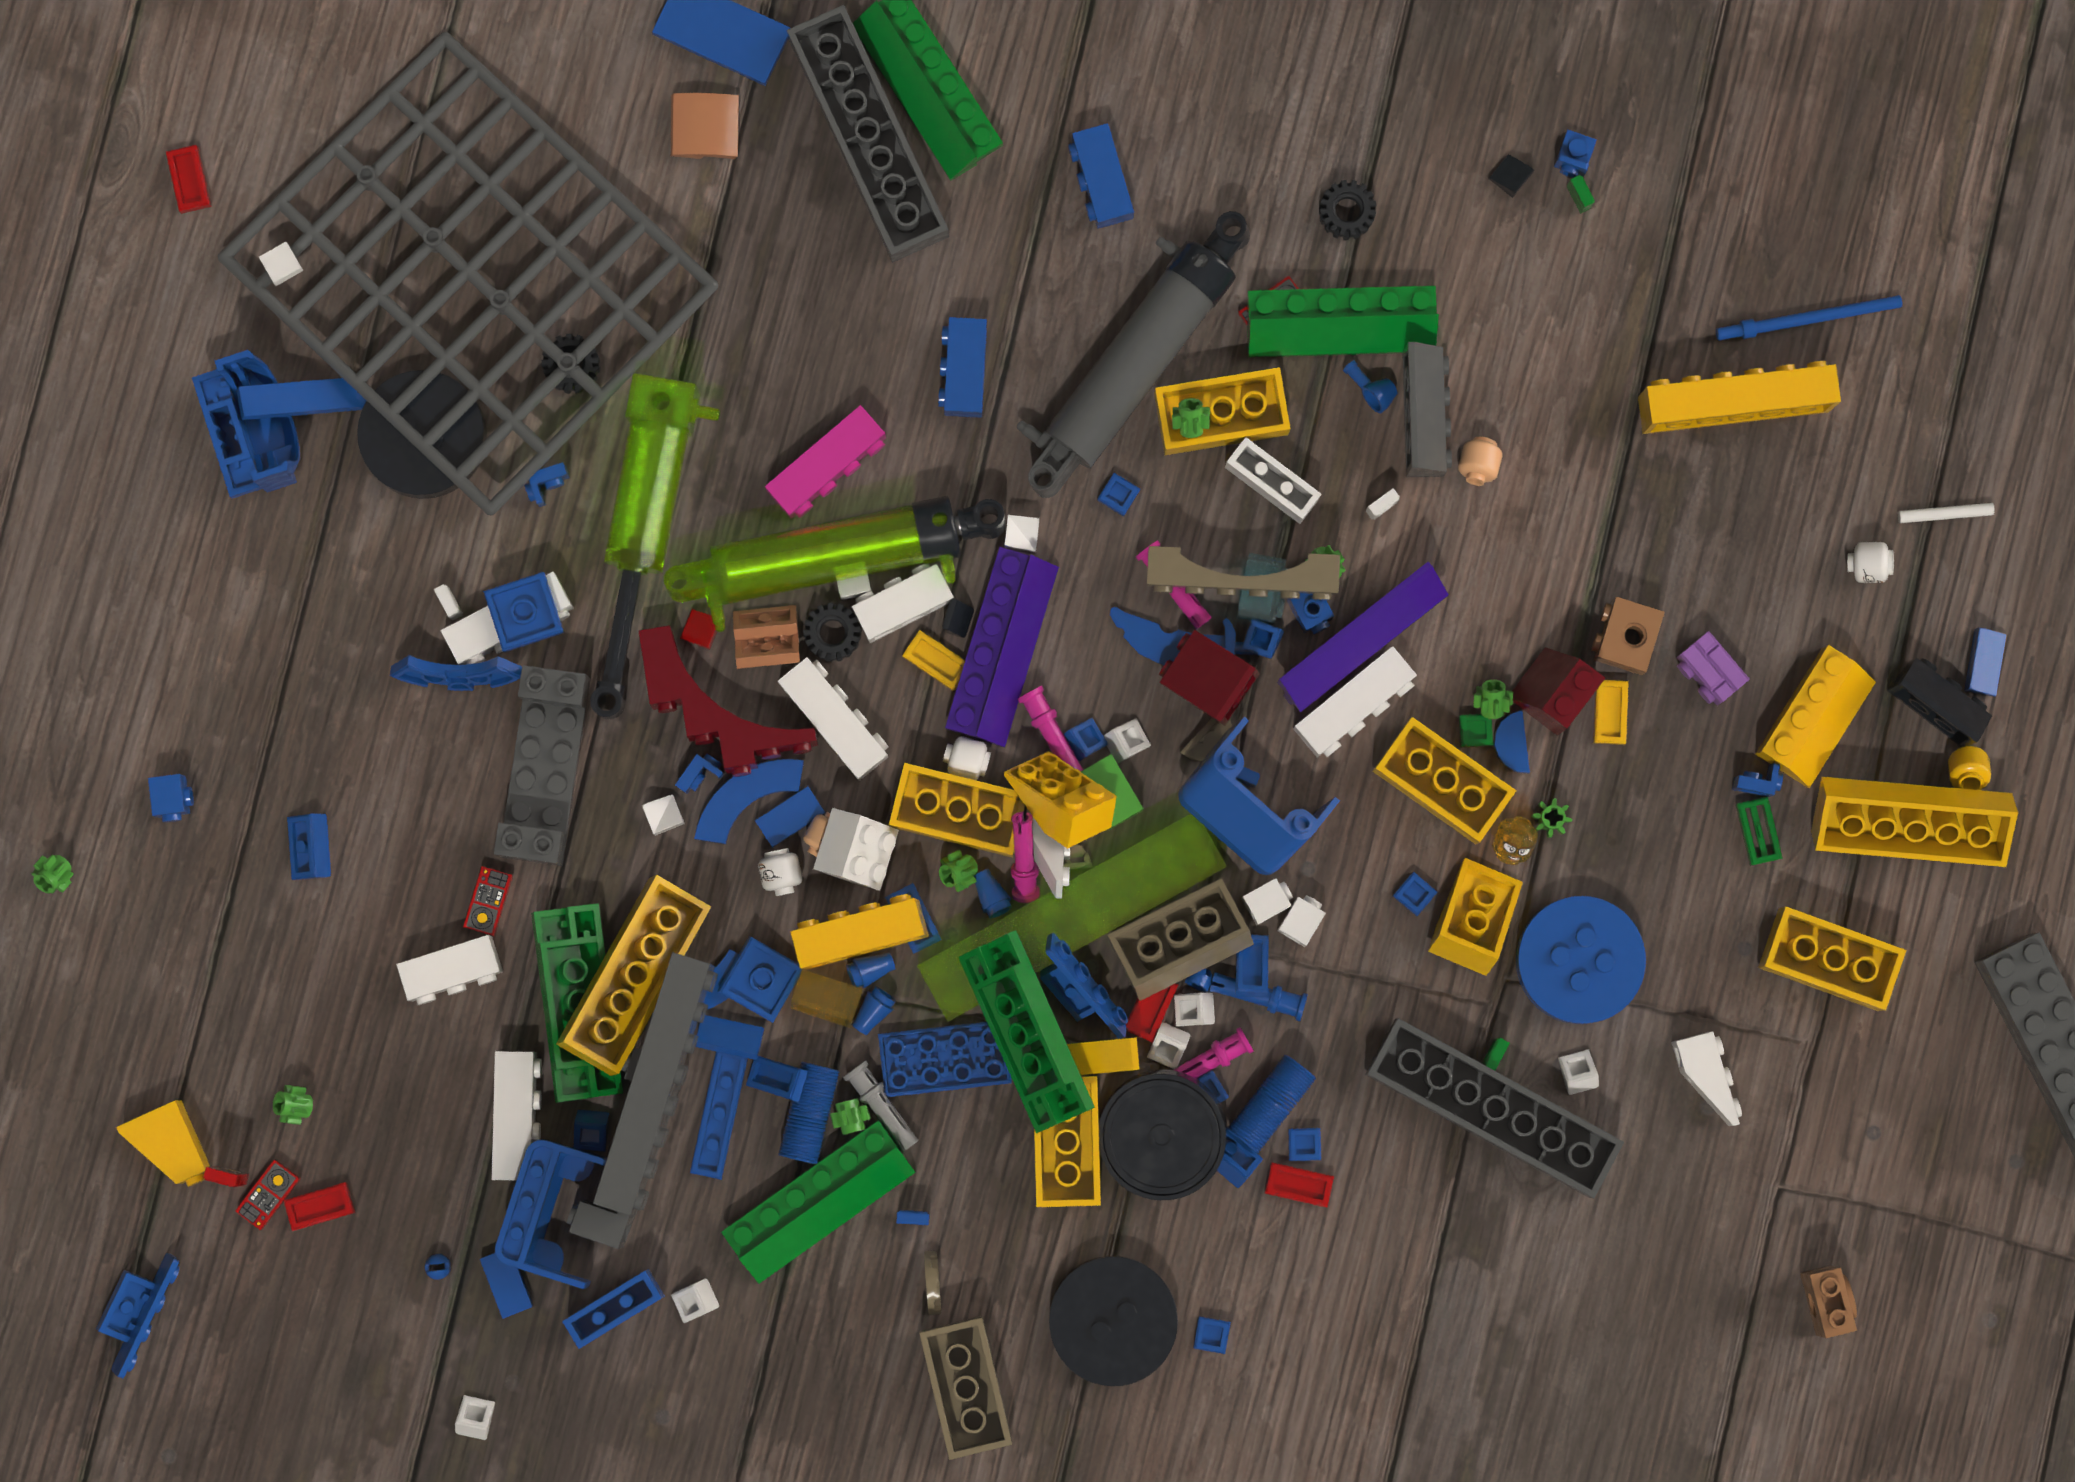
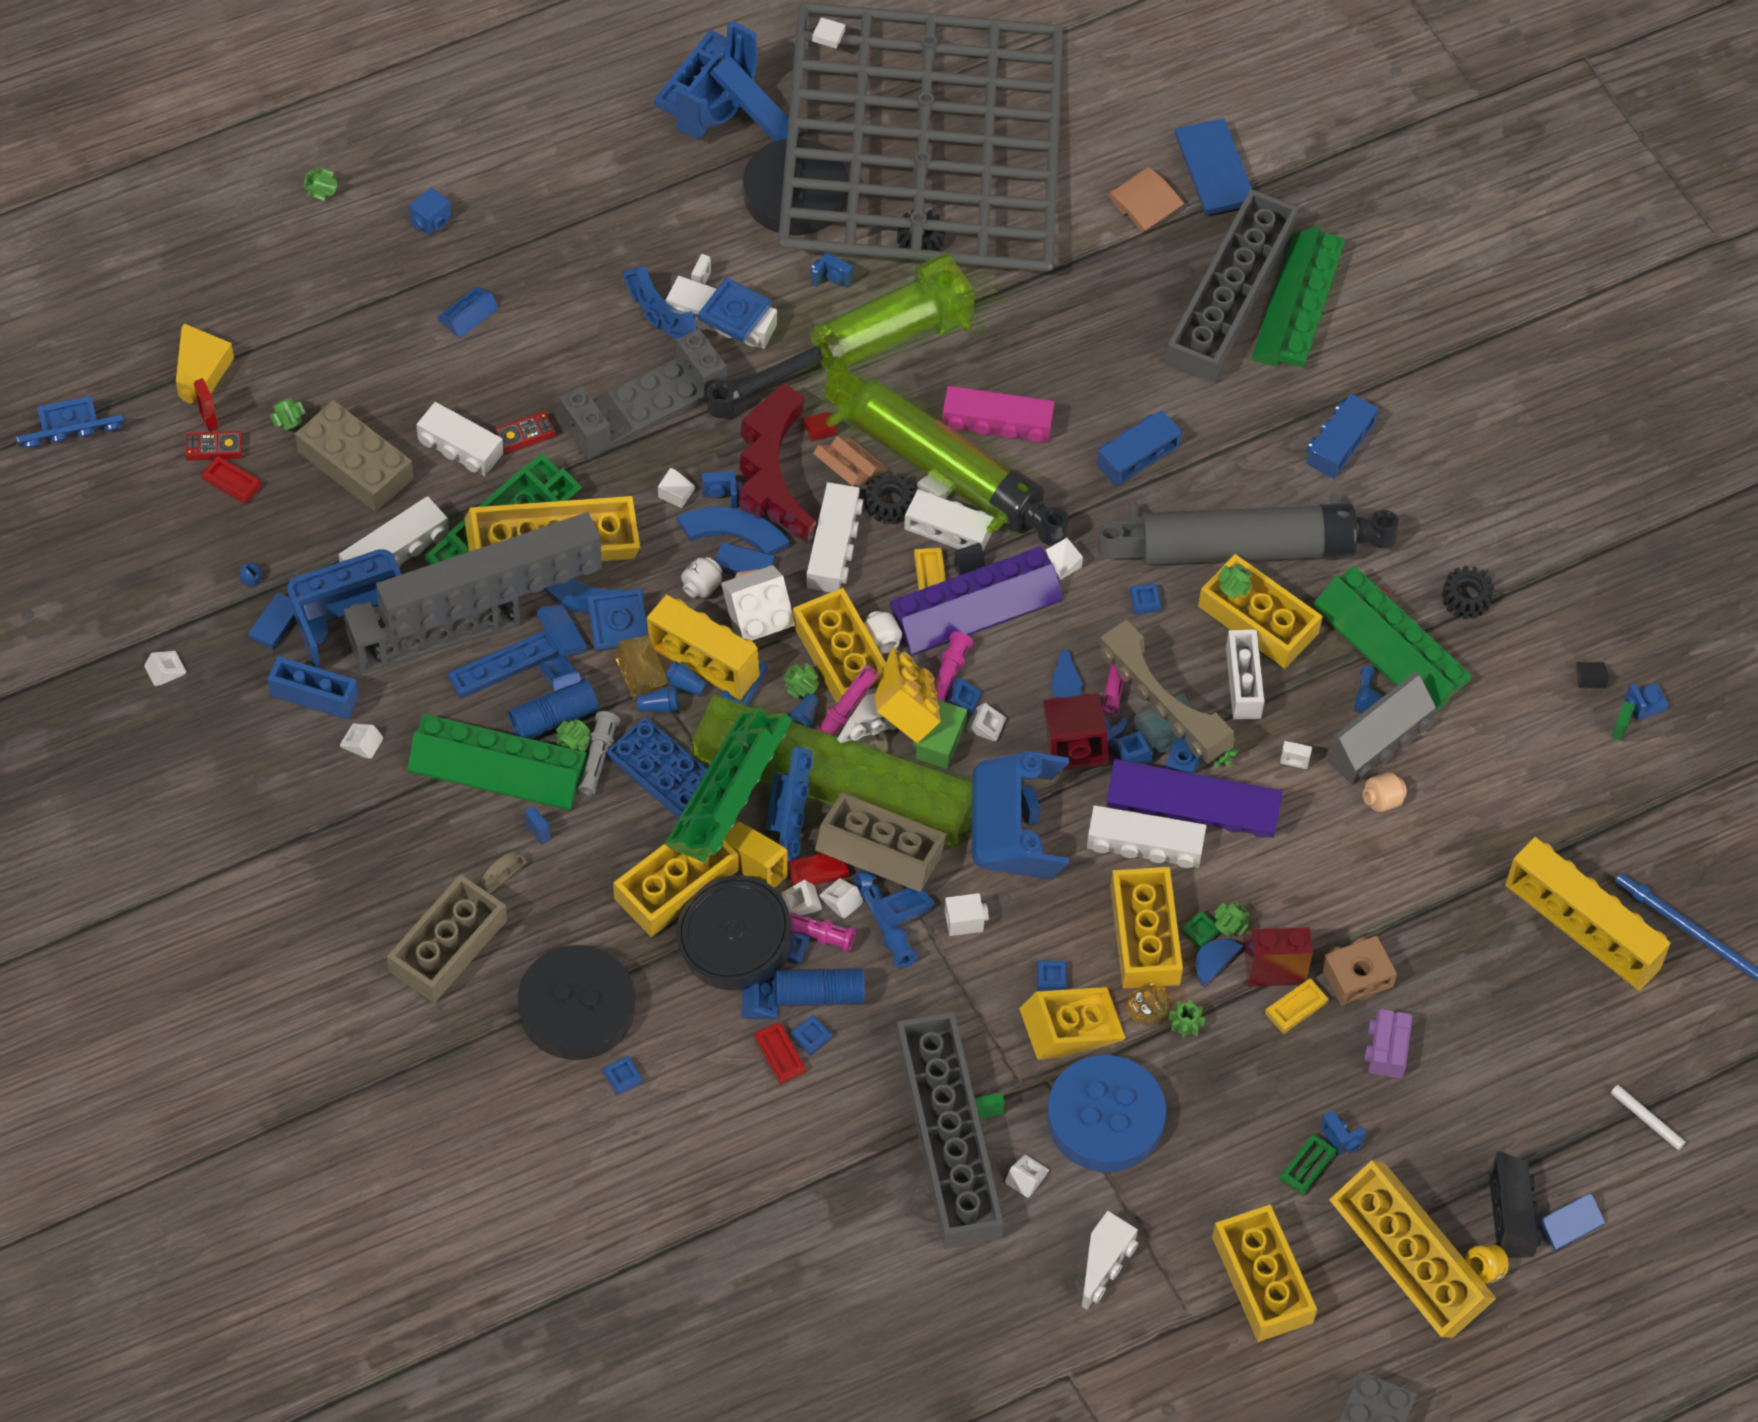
camera: 50 degrees right, 25 degrees down
(390, 1079) = (354, 456): none -> dark tan brick
(1267, 901) = (957, 880): white brick -> none
(1816, 716) = (1426, 1135): yellow slope -> none
(1871, 562) = (1564, 1090): white head -> none

